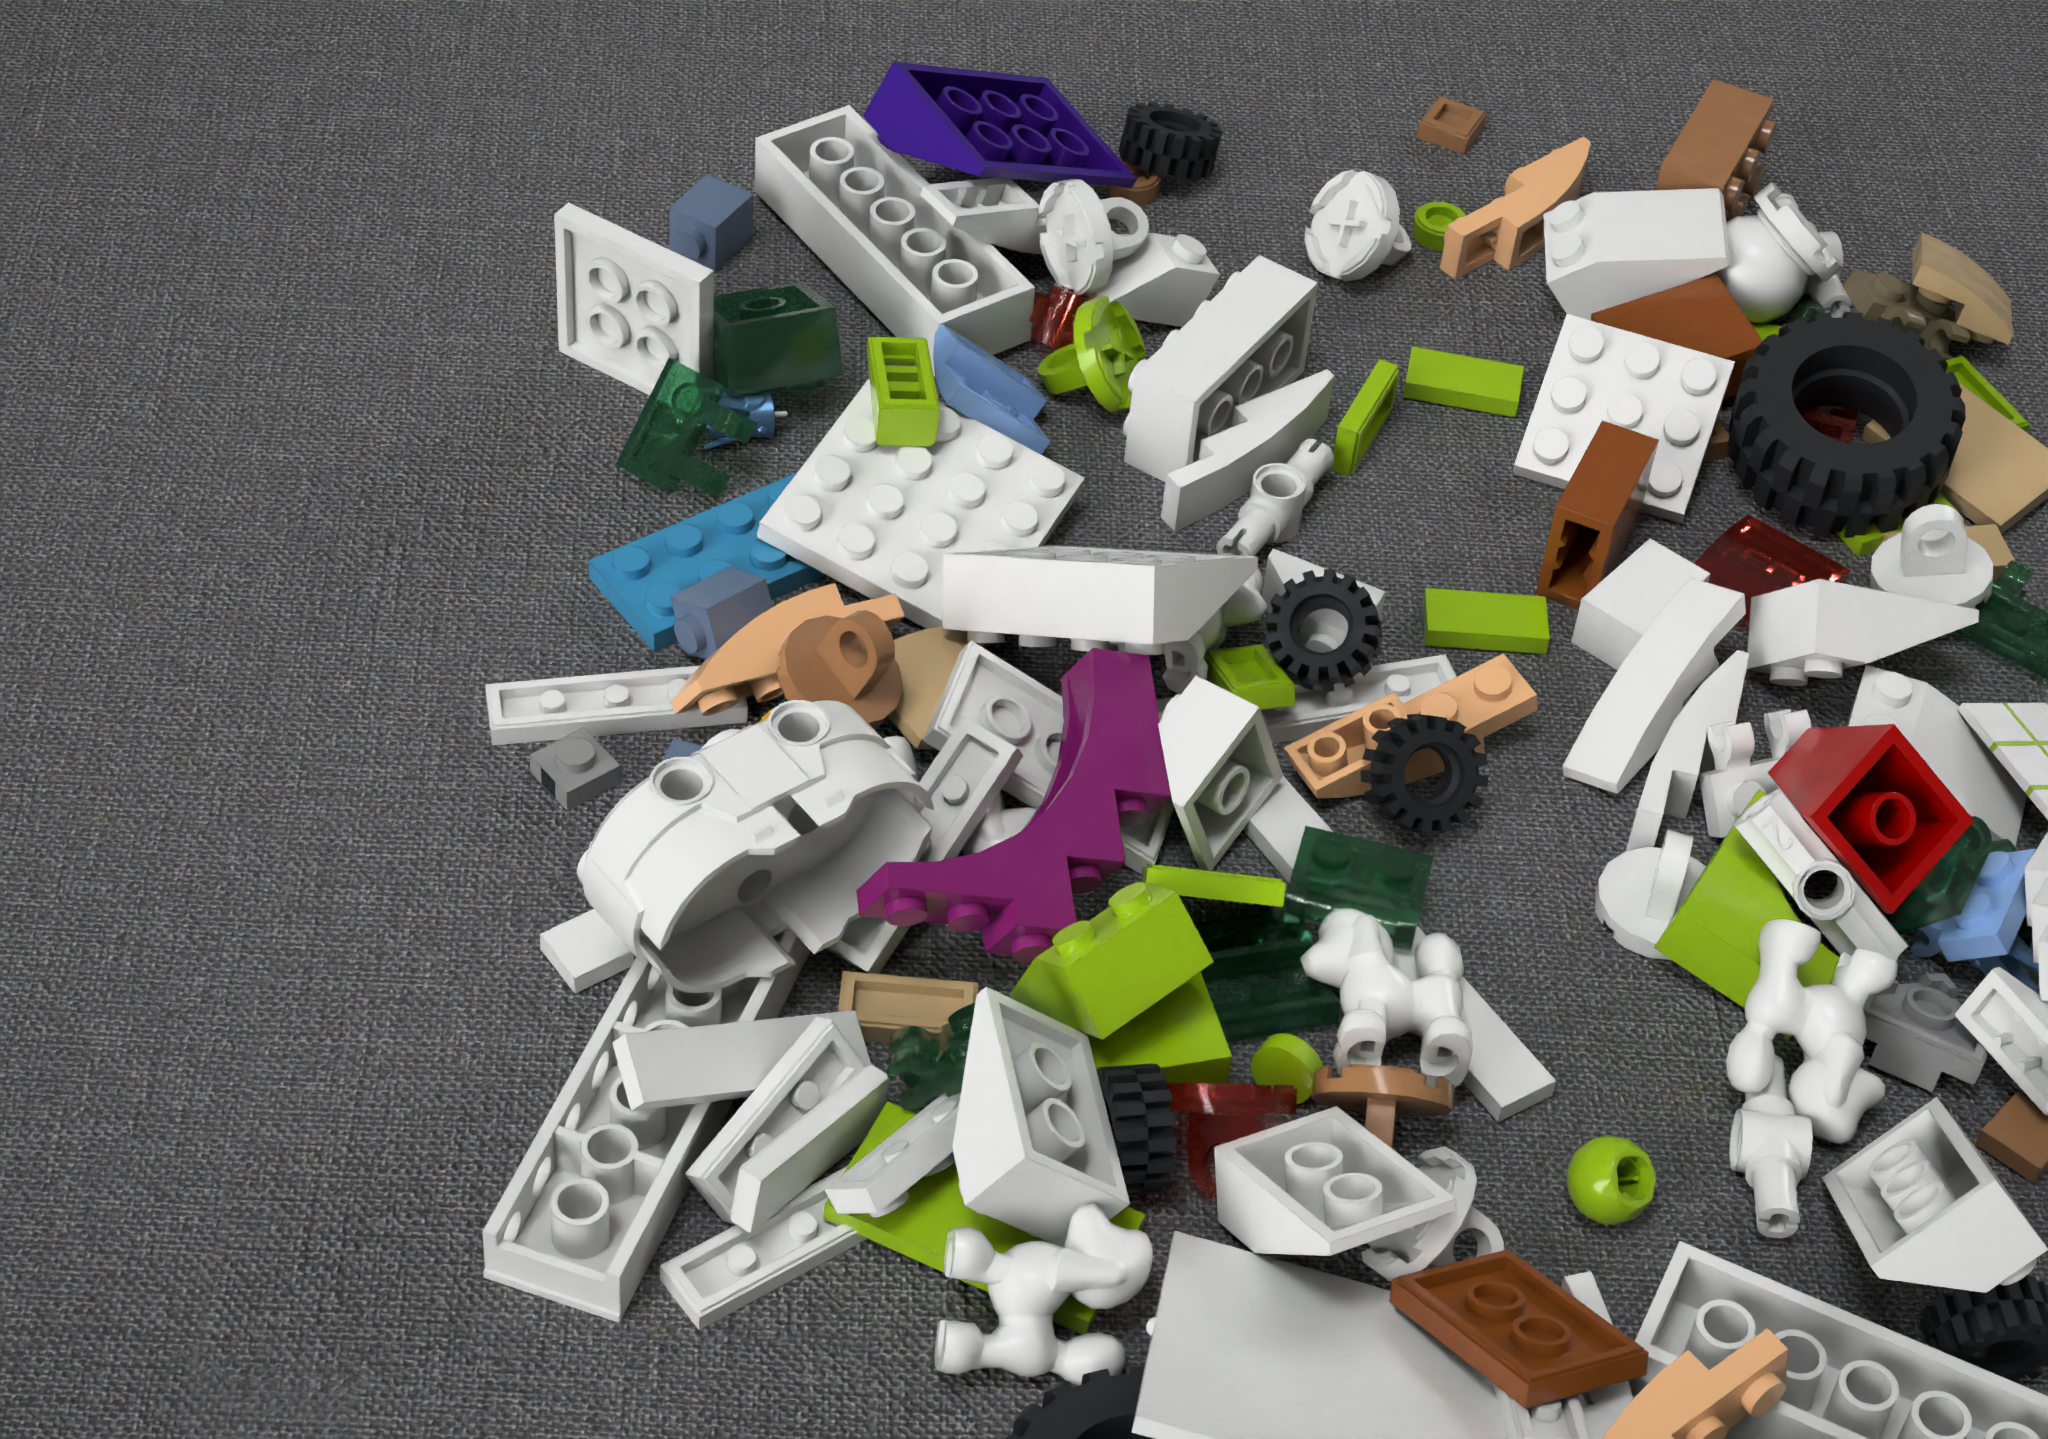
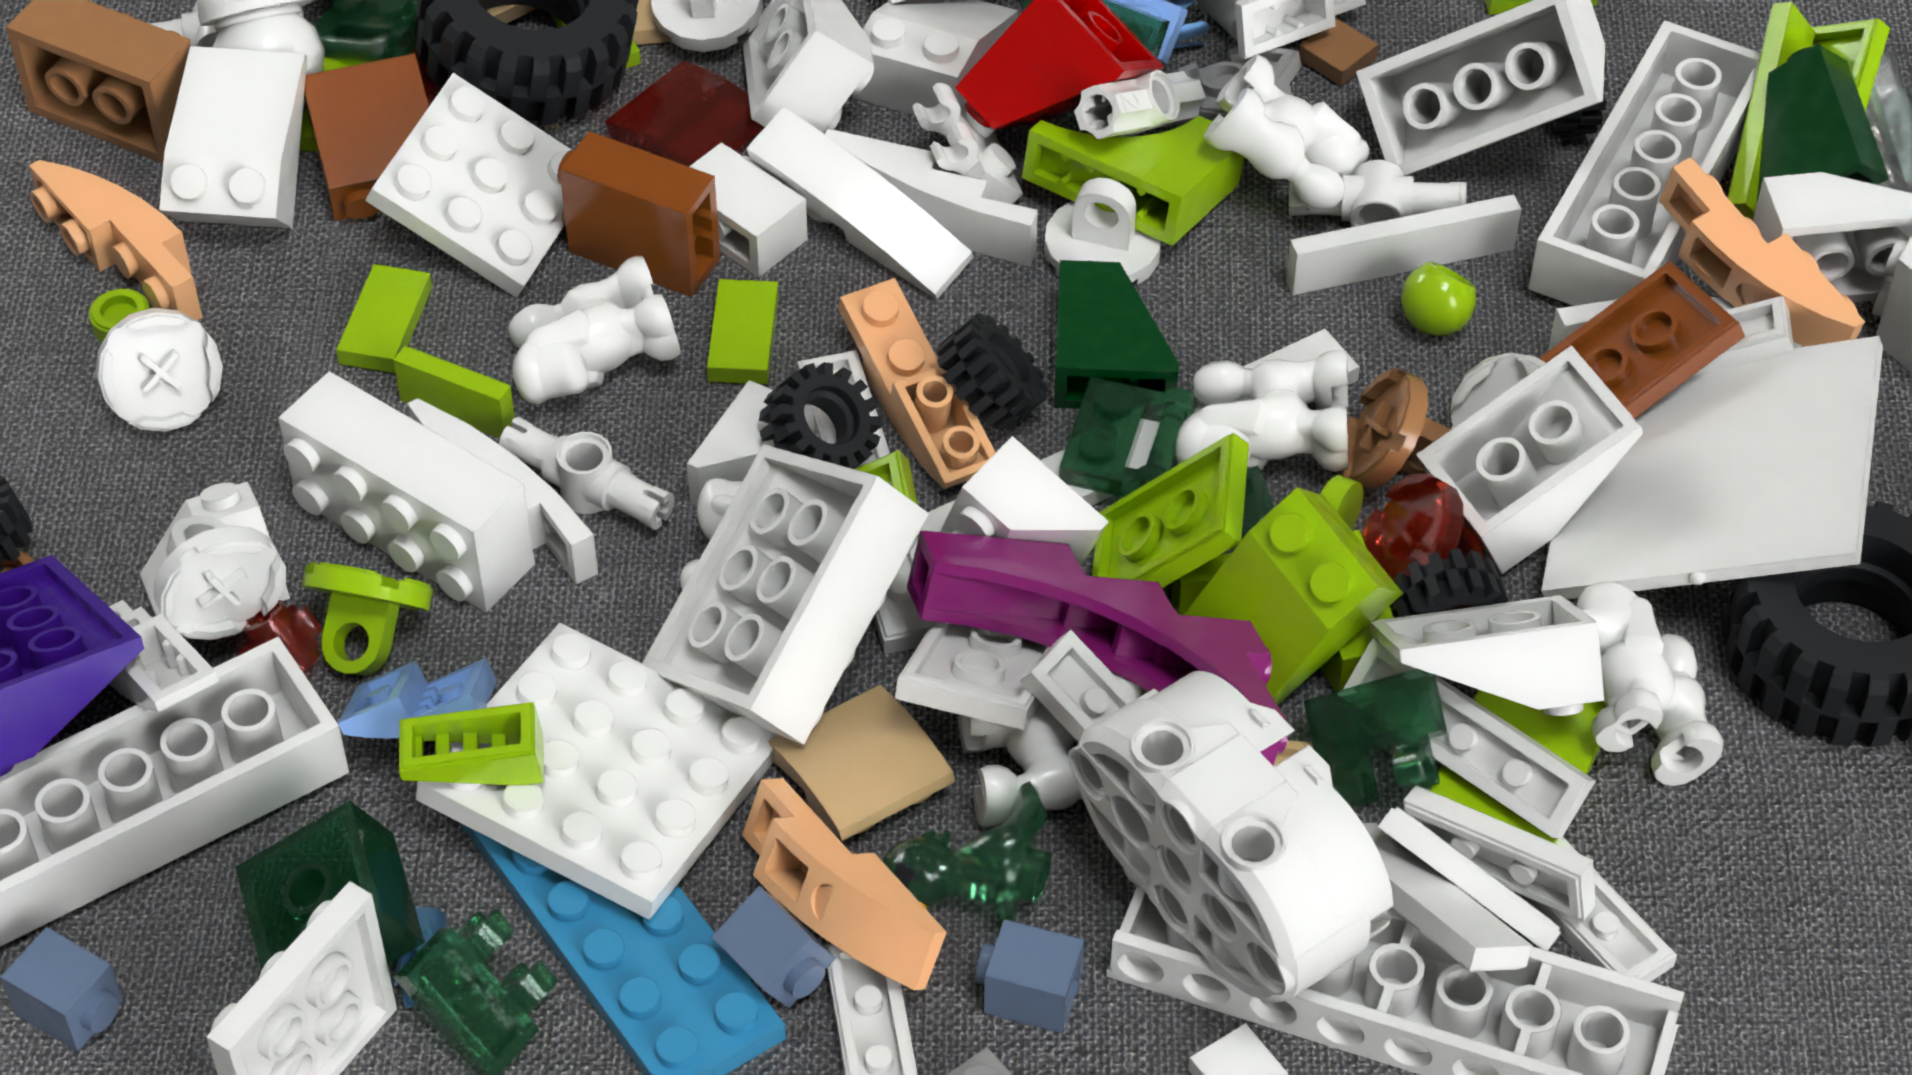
camera: 85 degrees left, 5 degrees up
(844, 663) = (899, 811): medium nougat tile -> none
(1446, 498) = (590, 333): none -> white animal
(1508, 881) = (1106, 334): none -> dark green slope
(1696, 1154) = (1402, 244): none -> white tile

